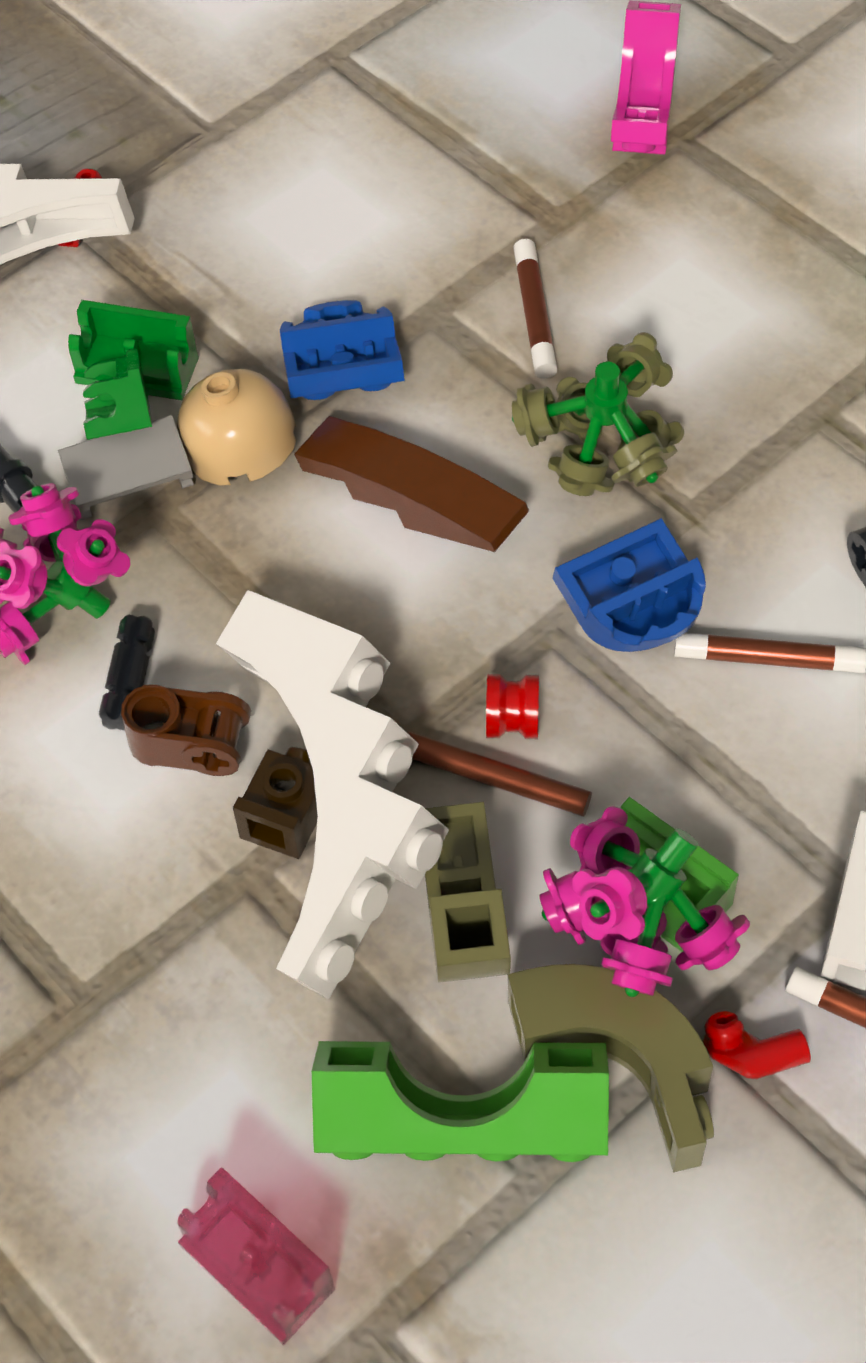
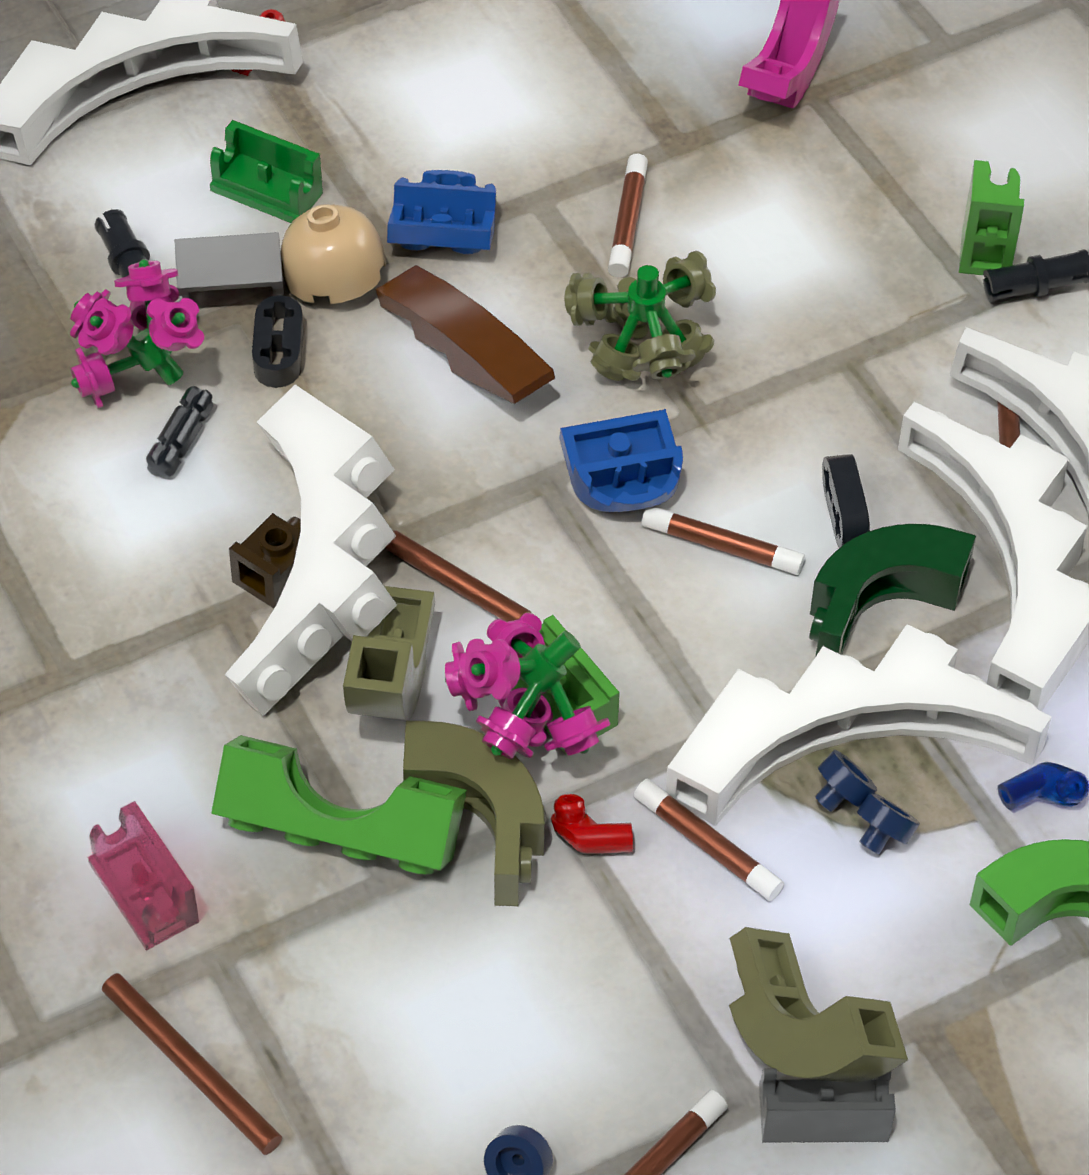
camera: 10 degrees right, 5 degrees down
(116, 402) = (242, 207): green hinge -> none
(190, 728) = (211, 484): reddish brown piece -> none
(215, 536) = (268, 340): none -> black beam
(512, 706) = (487, 529): red wheel -> none

